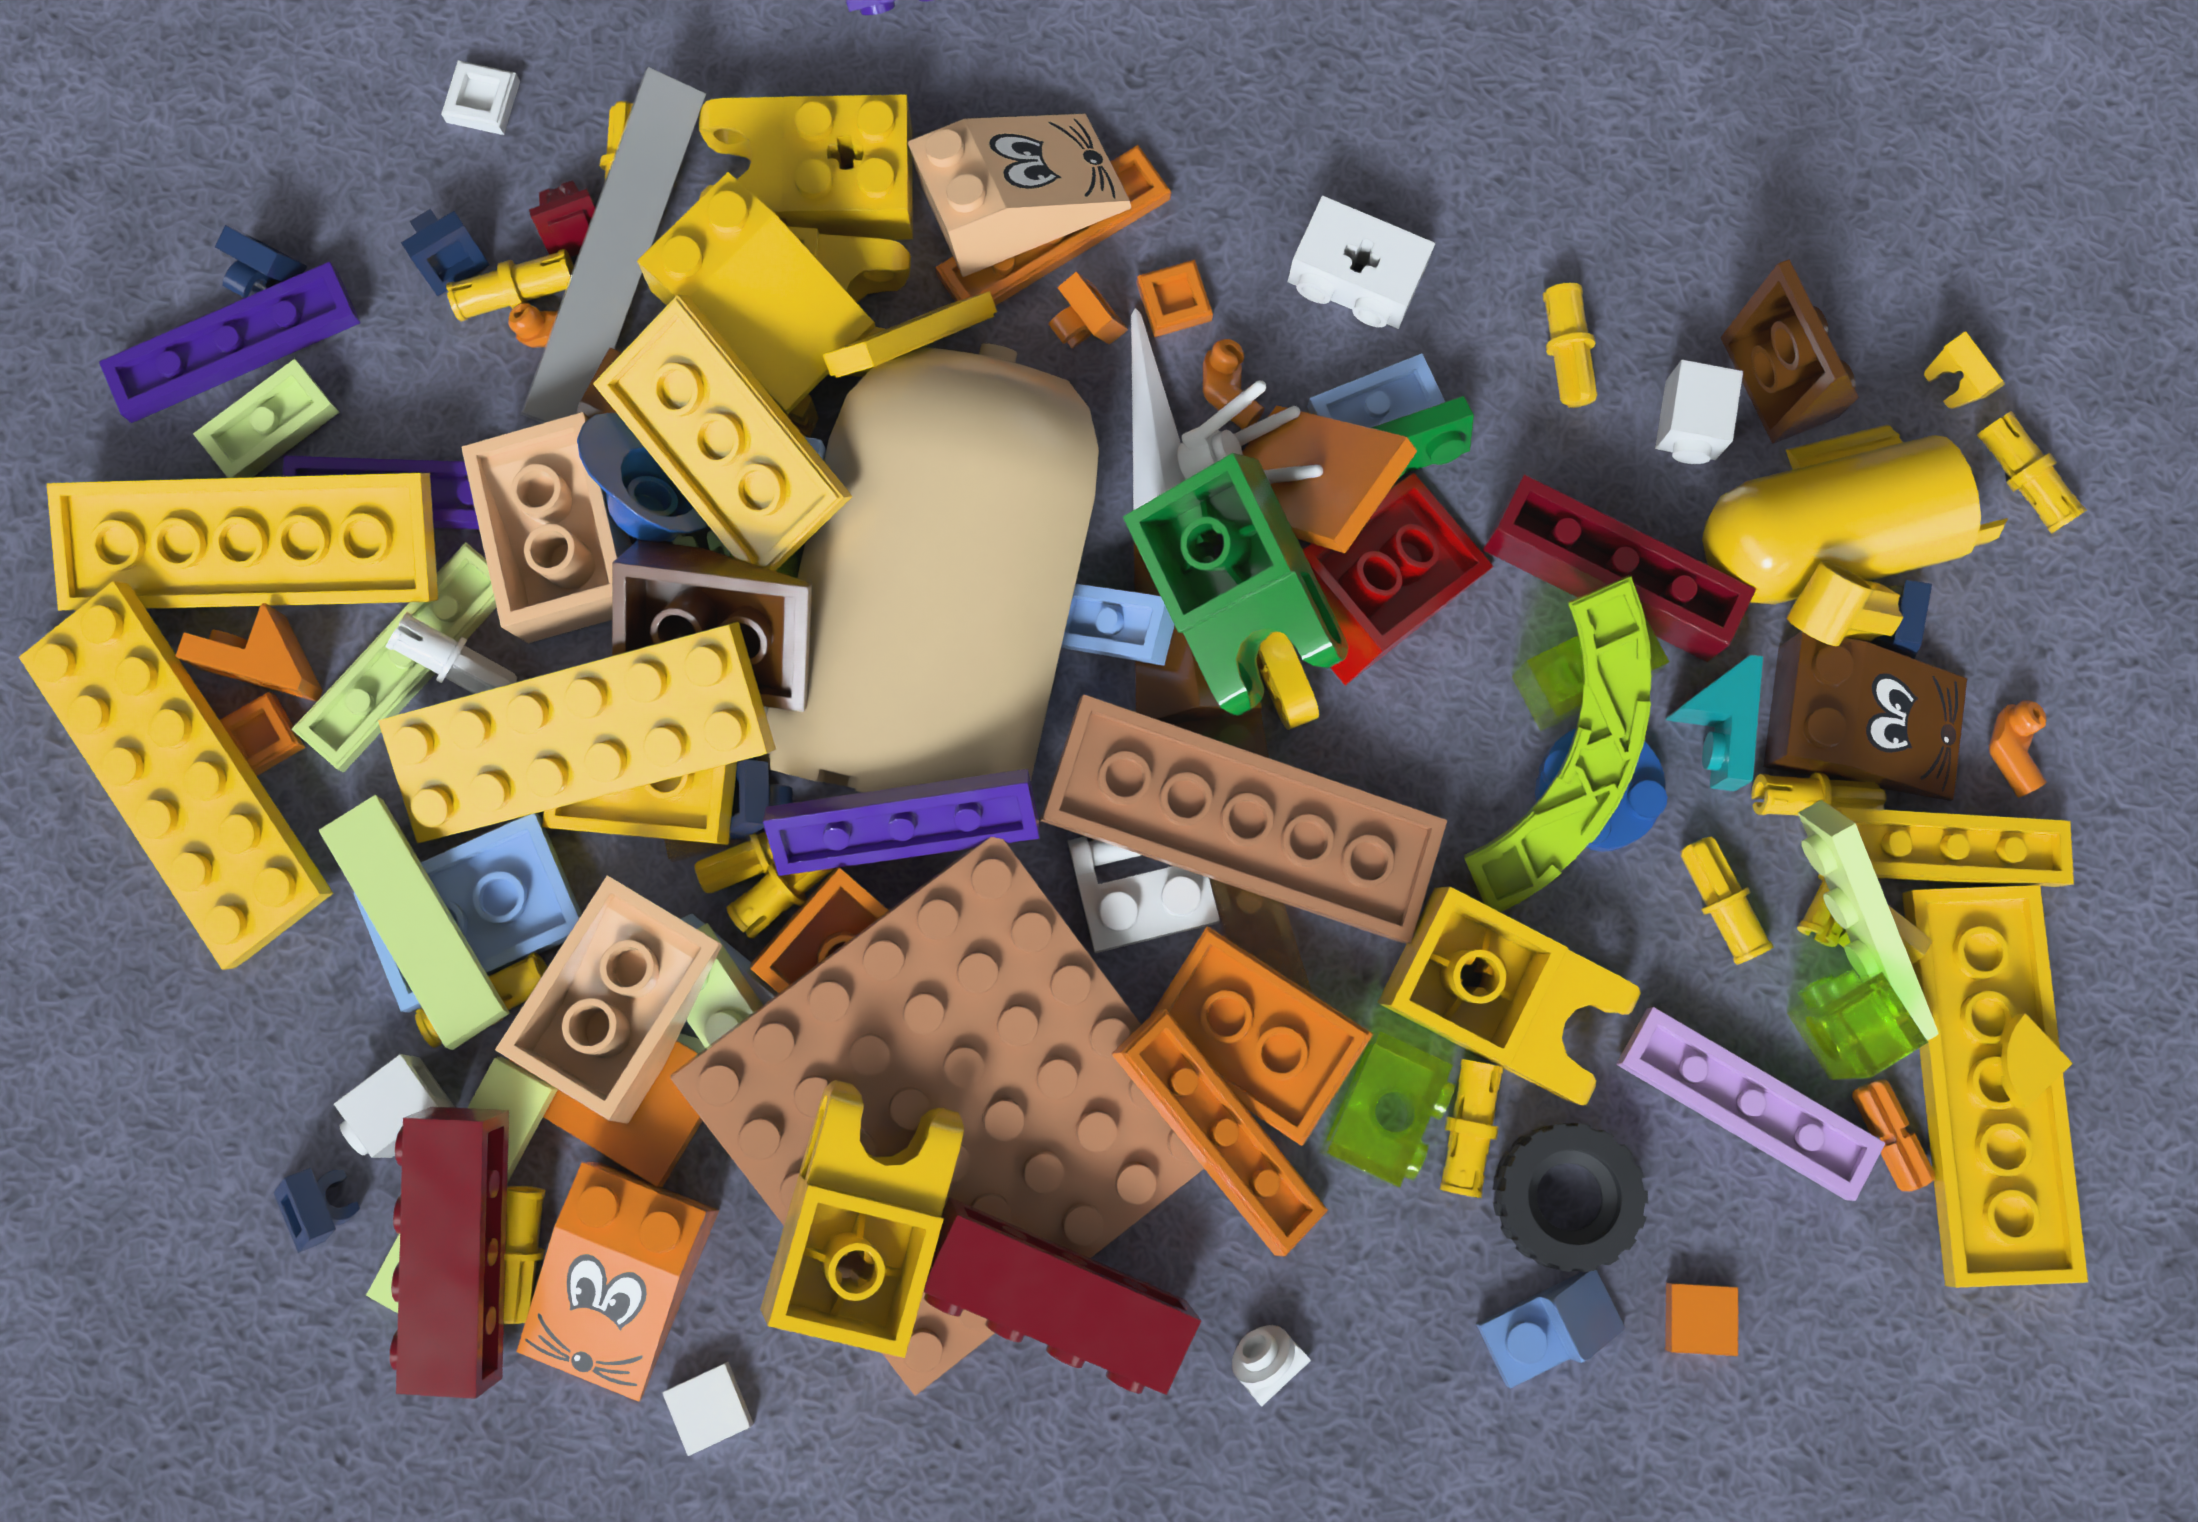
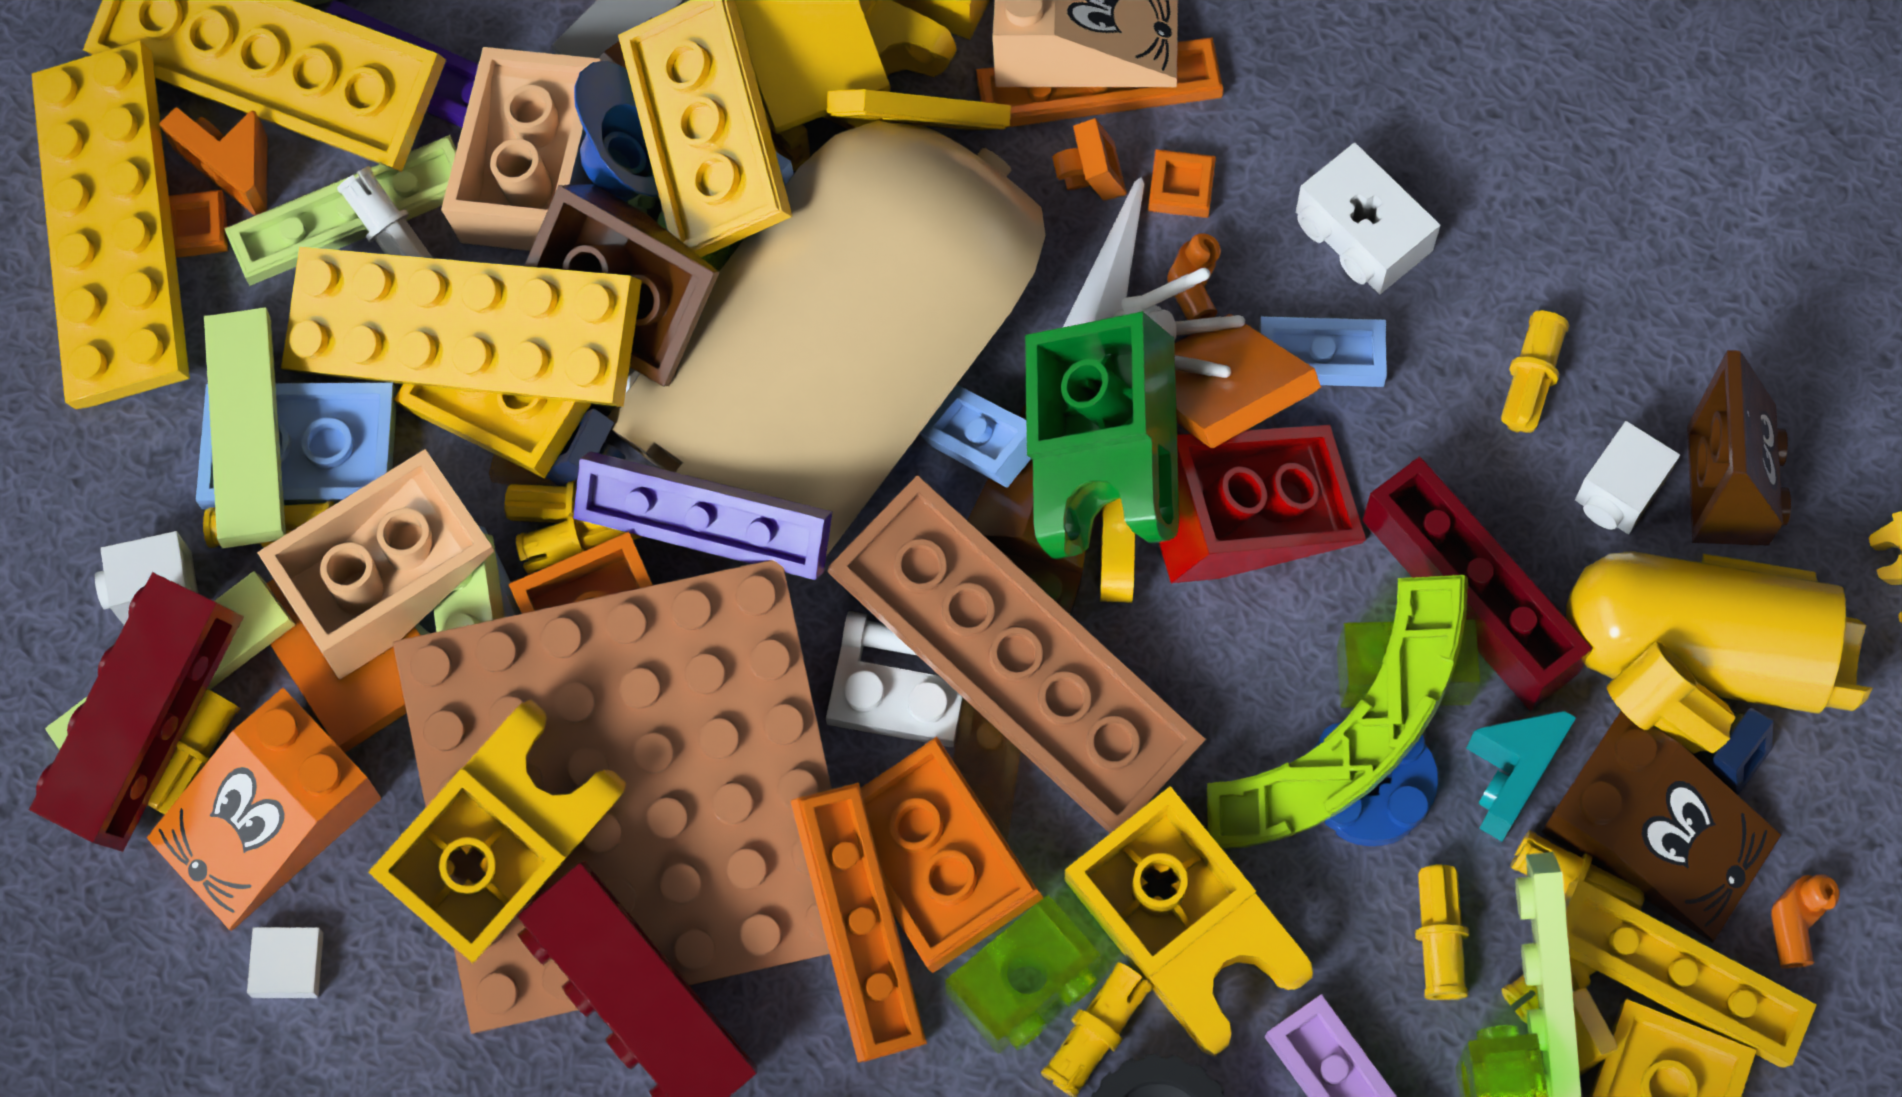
camera: 30 degrees right, 10 degrees down
(307, 1210) = (32, 632): dark blue tile -> none
(1436, 433) = (1349, 397): green plate -> none

